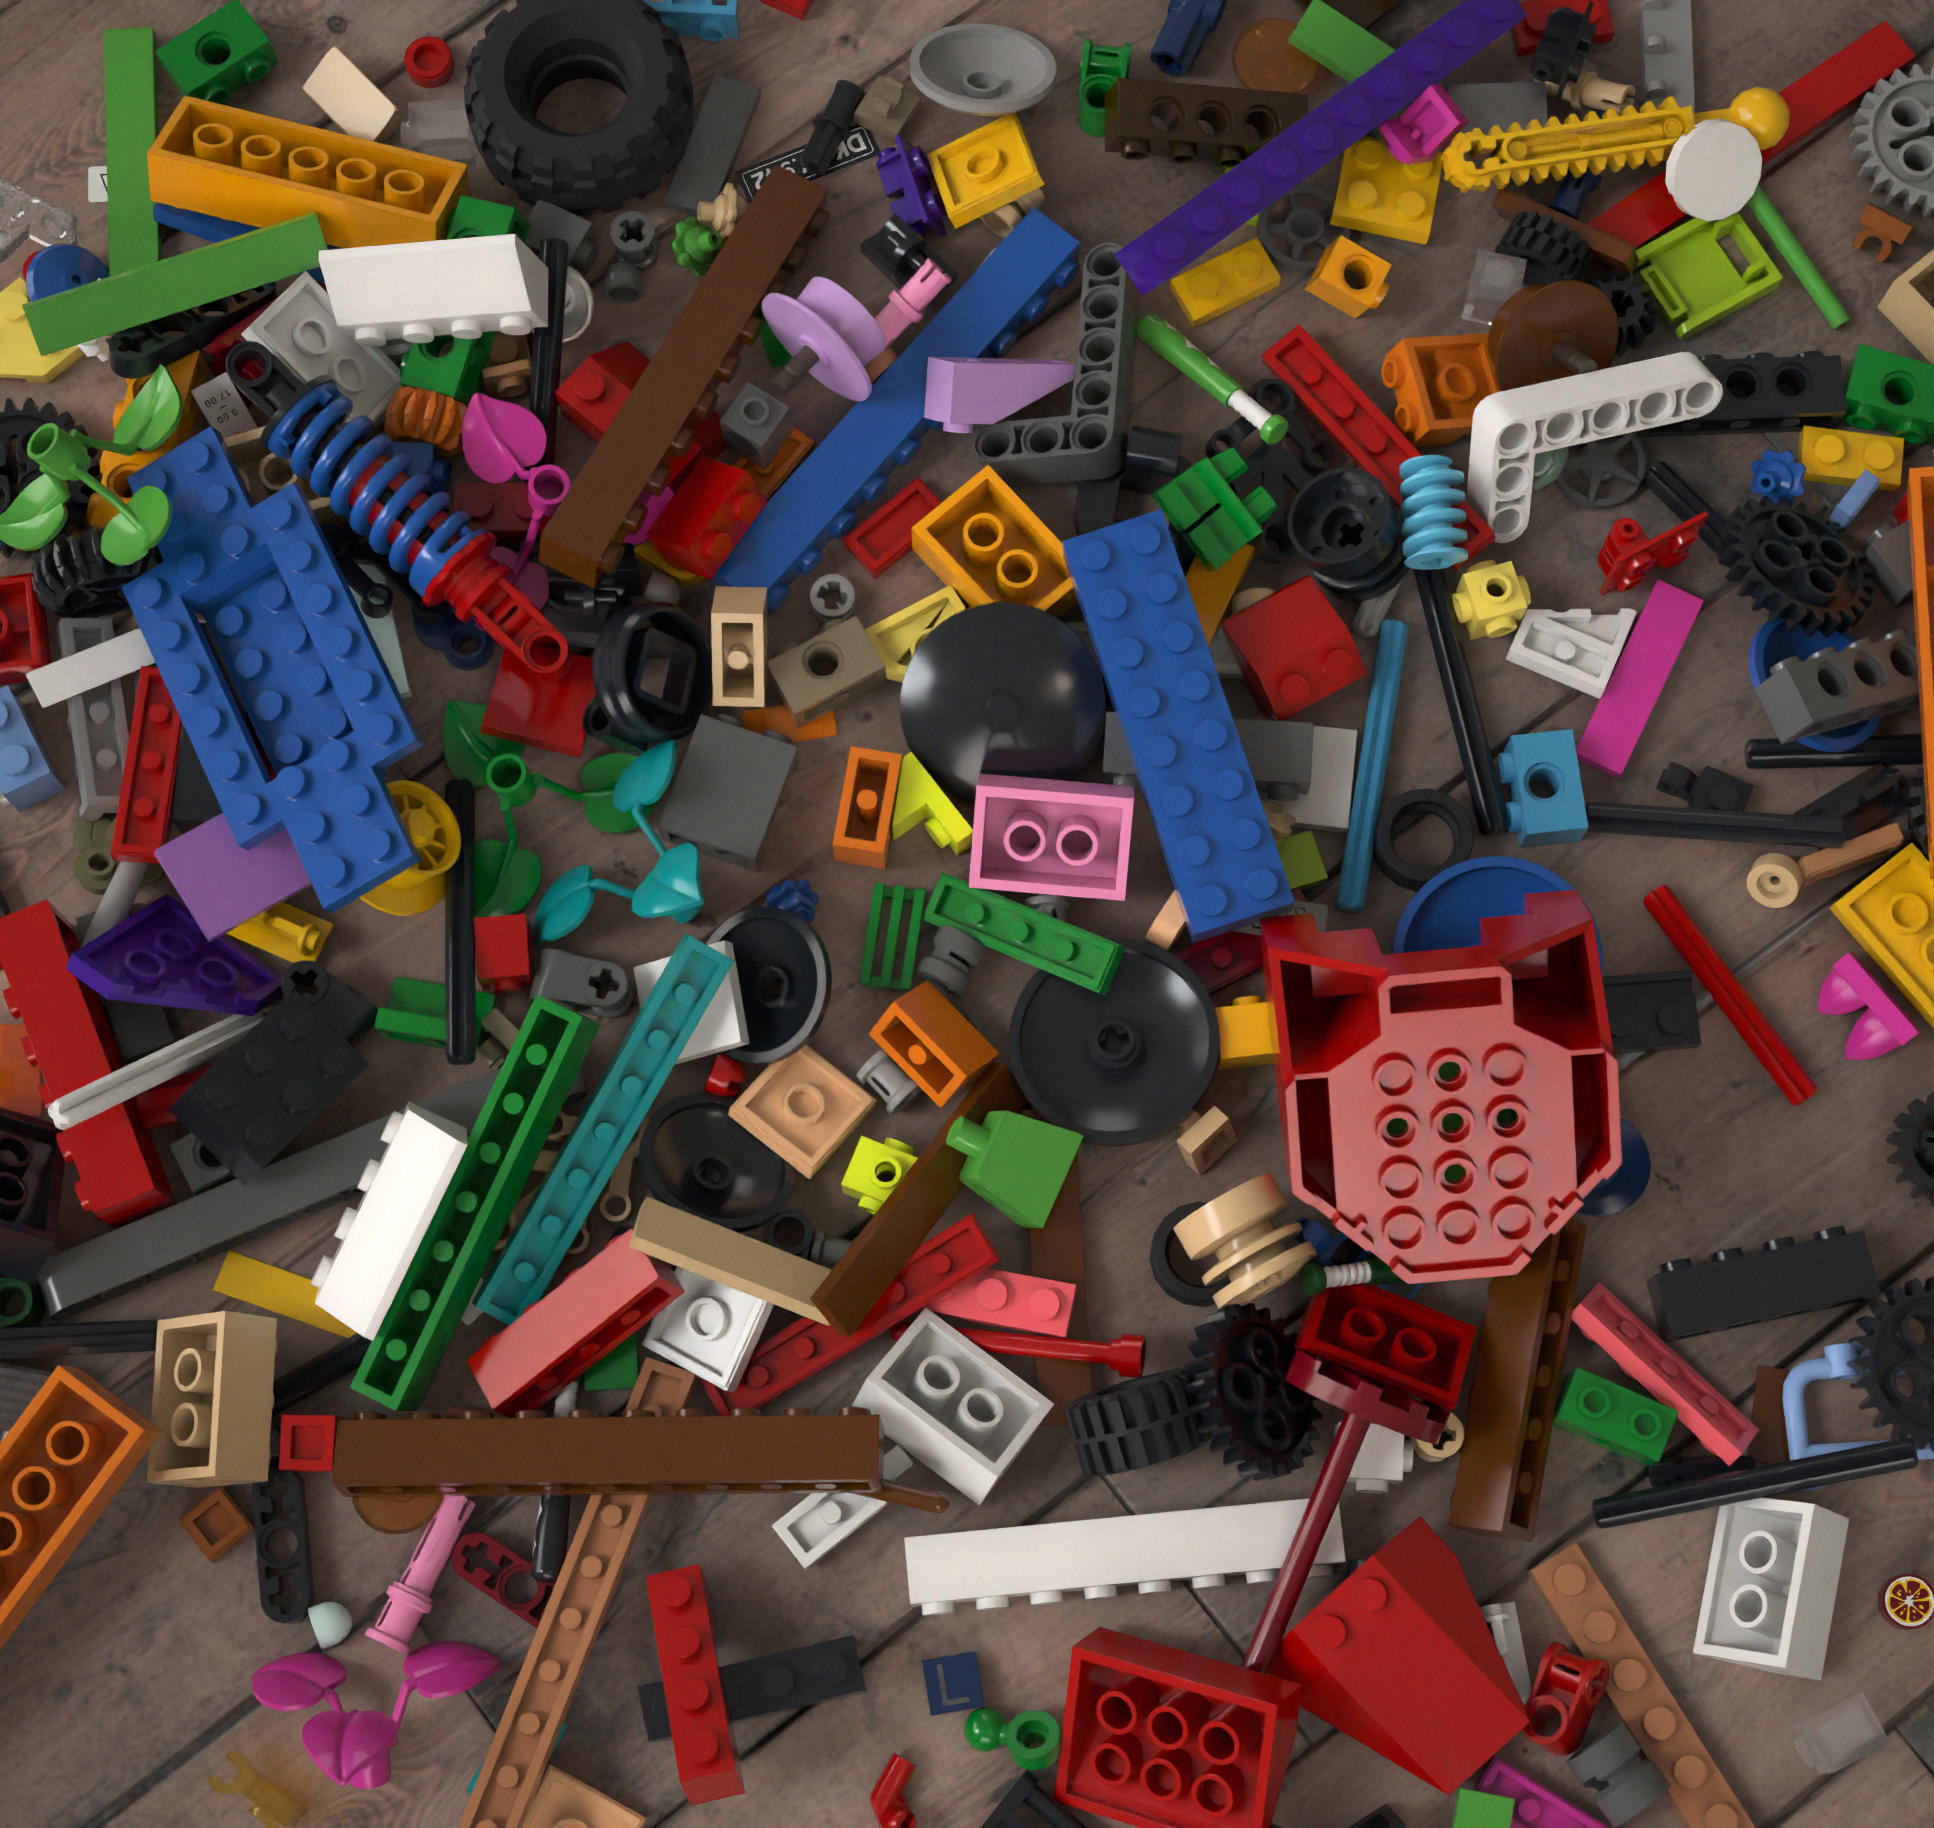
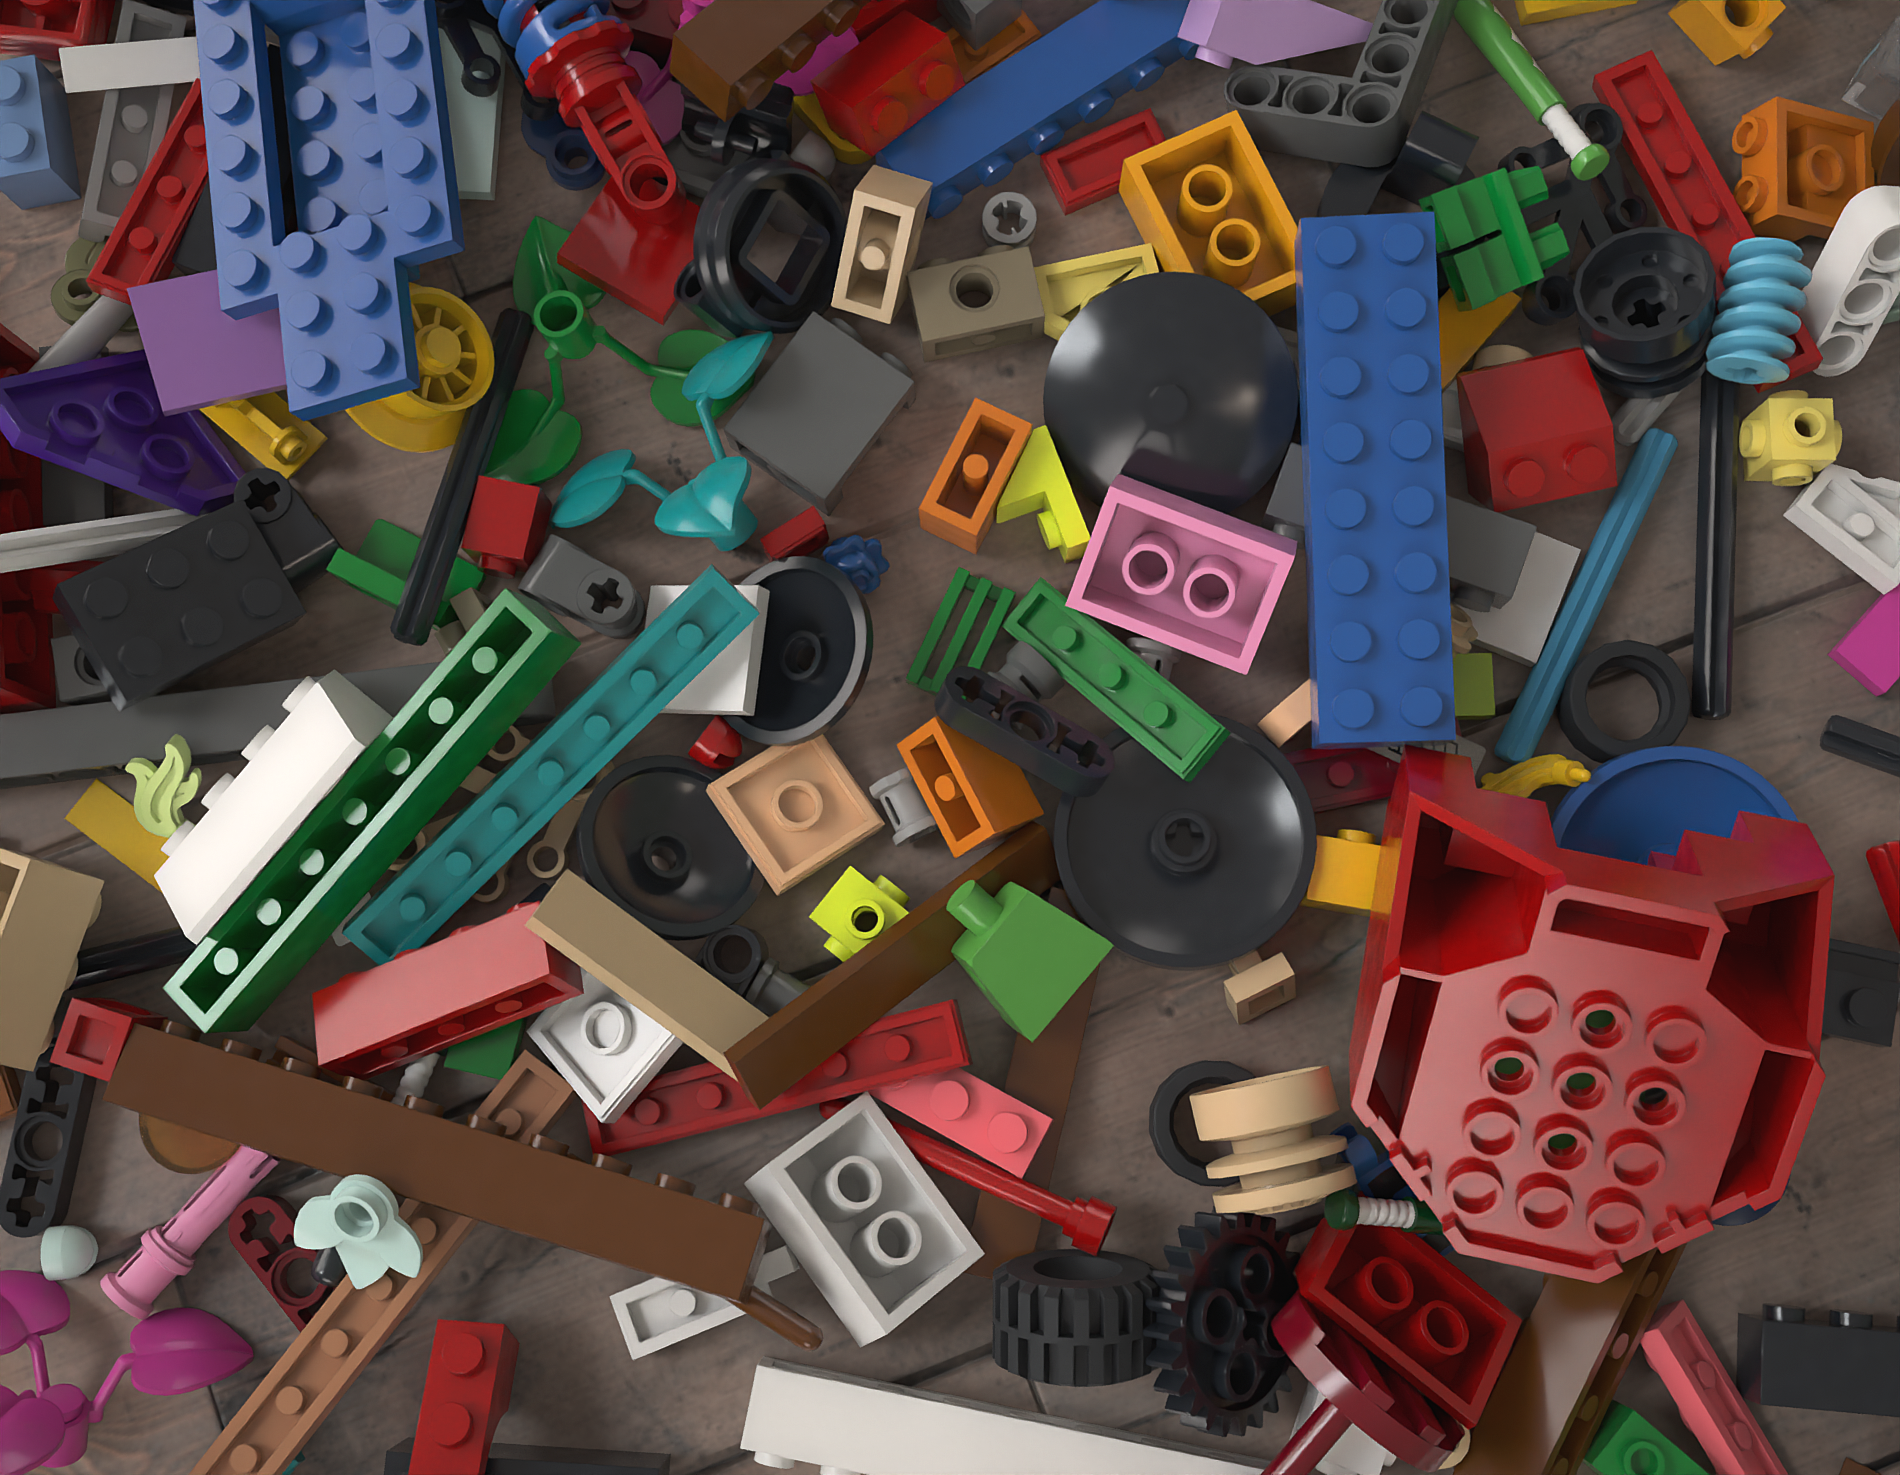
camera: 20 degrees right, 5 degrees up
(295, 1239) = (164, 789): none -> yellowish green piece
(568, 1525) = (363, 1227): none -> light aqua plate
(739, 895) = (797, 536): none -> red tile
(778, 720) = (906, 347): orange sticker -> none
(1015, 1003) = (1056, 767): none -> black beam
(1374, 911) = (1536, 773): none -> yellow piece
(1549, 759) = (1812, 657): dark azure brick -> none

